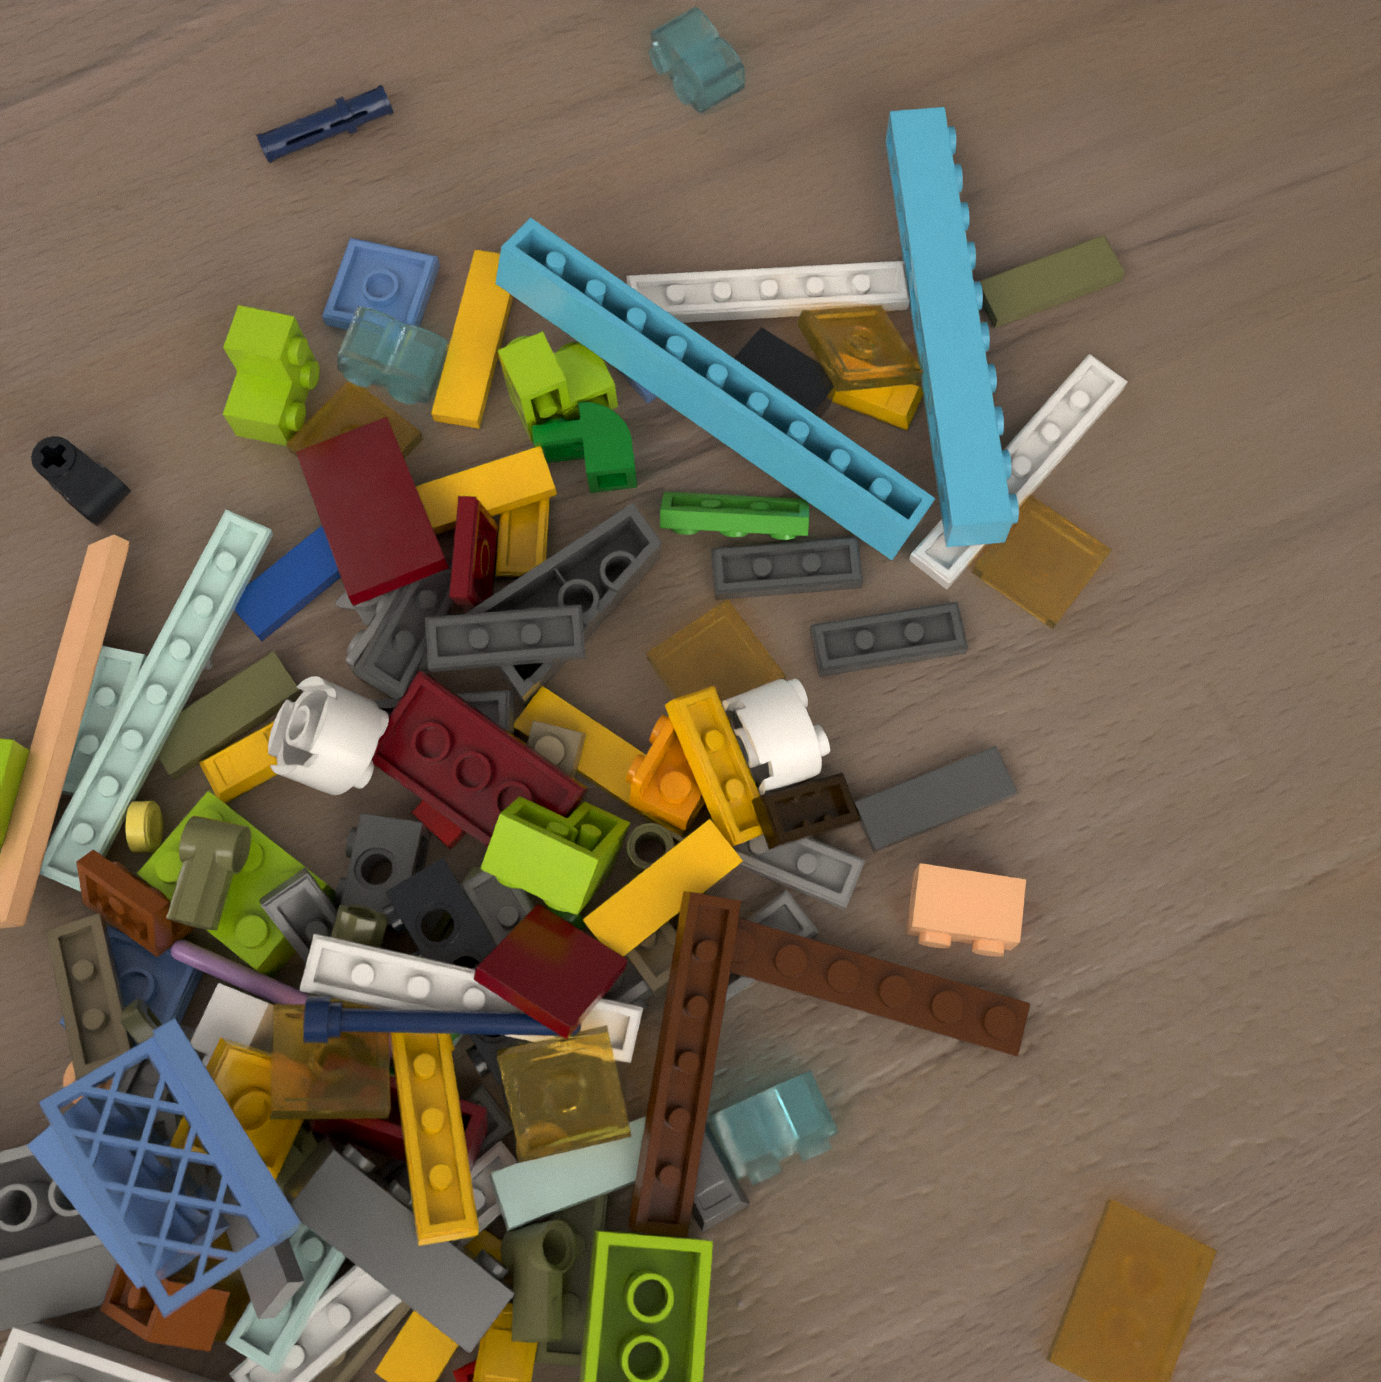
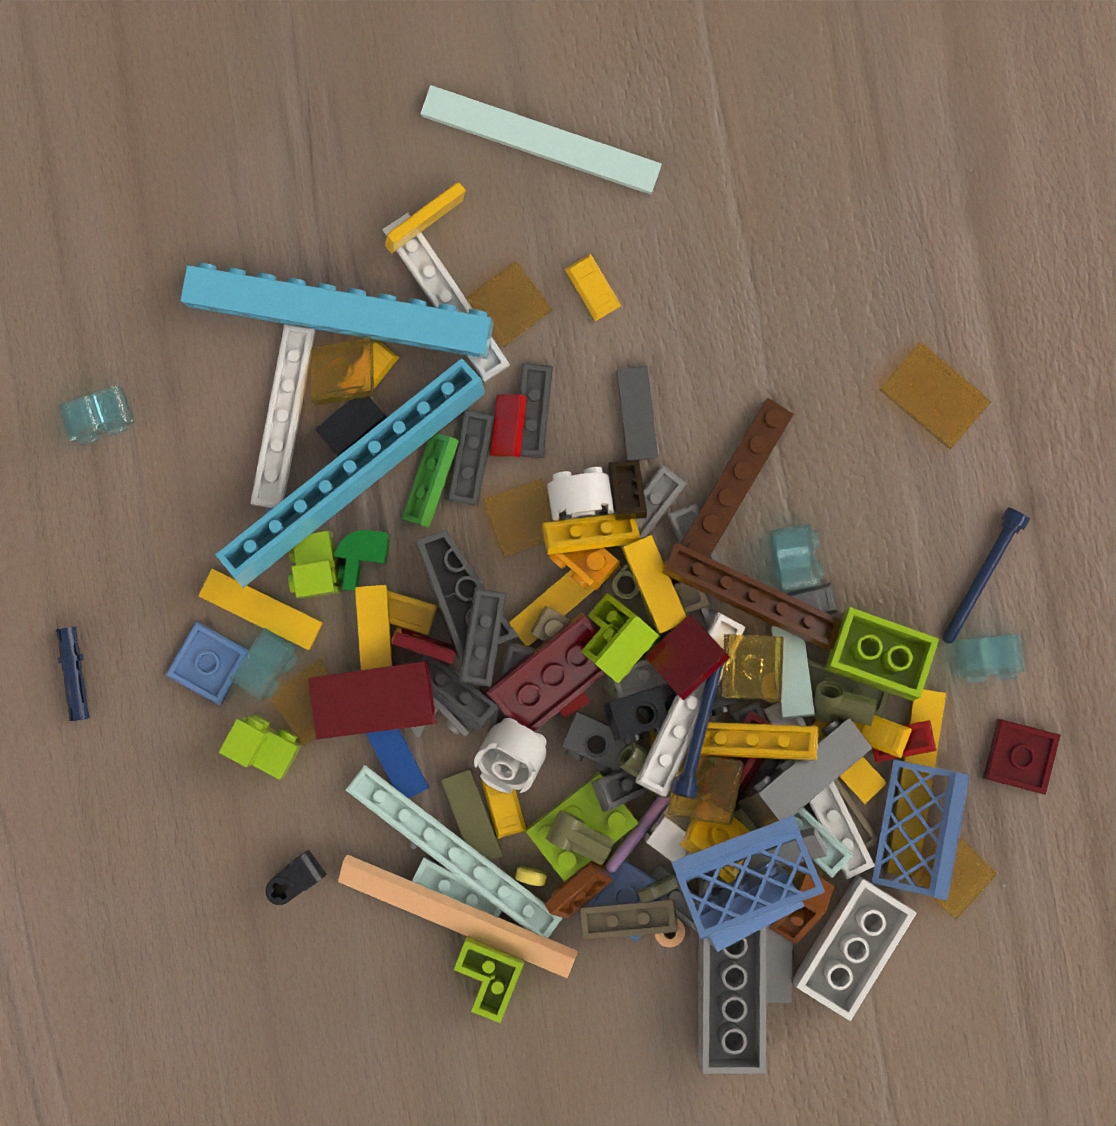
camera: 70 degrees left, 15 degrees up
(853, 605) = (508, 425): none -> red tile
(966, 909) = (706, 417): light nougat brick -> none
(1050, 281) = (323, 236): olive tile -> none
(1111, 679) = (592, 287): none -> yellow tile
(1130, 399) = (424, 217): none -> yellow tile
(1311, 548) = (541, 139): none -> light aqua tile

